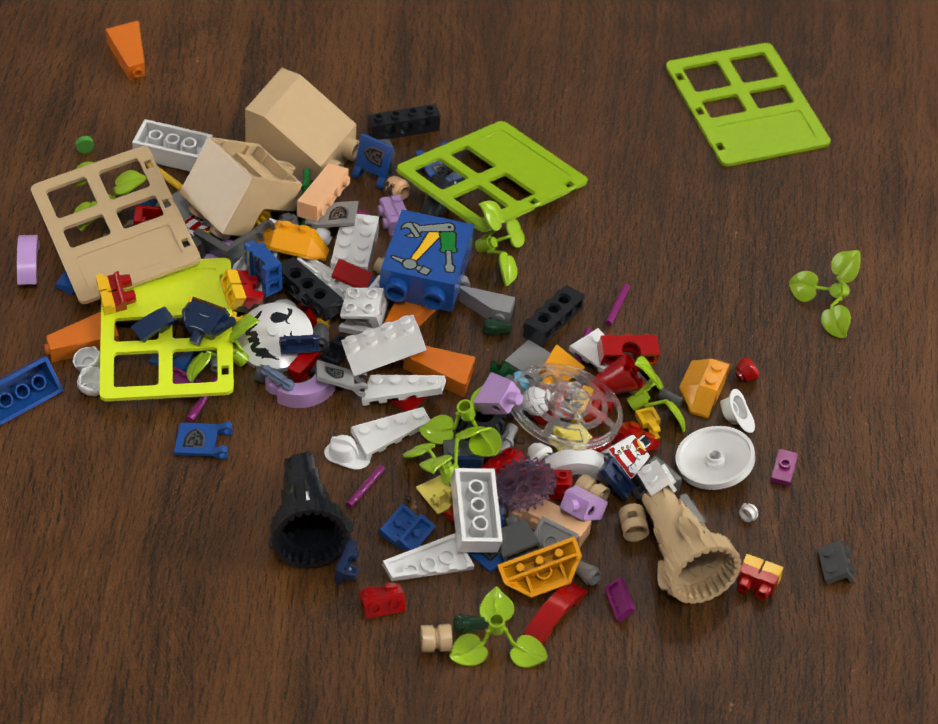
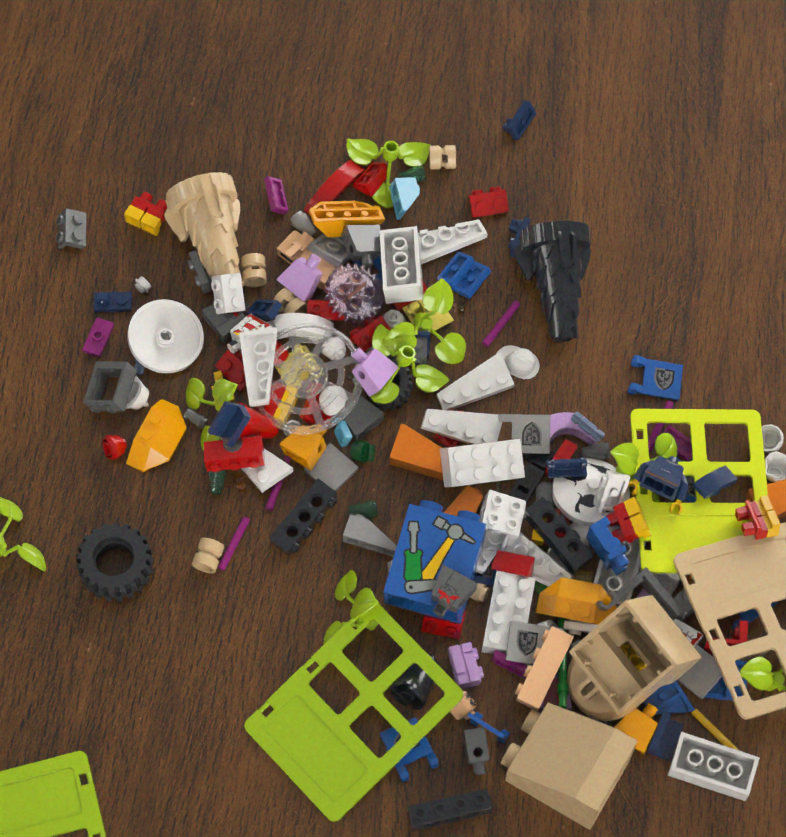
camera: 175 degrees left, 20 degrees up
(265, 307) = (612, 490): none -> white bracket
(352, 678) = (520, 121): none -> dark blue hinge
(410, 215) = (451, 591): none -> dark grey torso
(476, 596) = (403, 194): none -> medium azure slope
(517, 618) = (372, 178): none -> red slope
(594, 545) = (294, 246): none -> light nougat piece
(616, 410) = (258, 360): none -> white wing
(631, 352) = (230, 422): none -> dark blue panel
(640, 287) = (208, 554): none -> tan wheel
(726, 294) = (103, 540): none -> black tyre
(756, 424) = (98, 381): none -> dark grey window
(777, 499) = (112, 301): none -> dark blue hinge

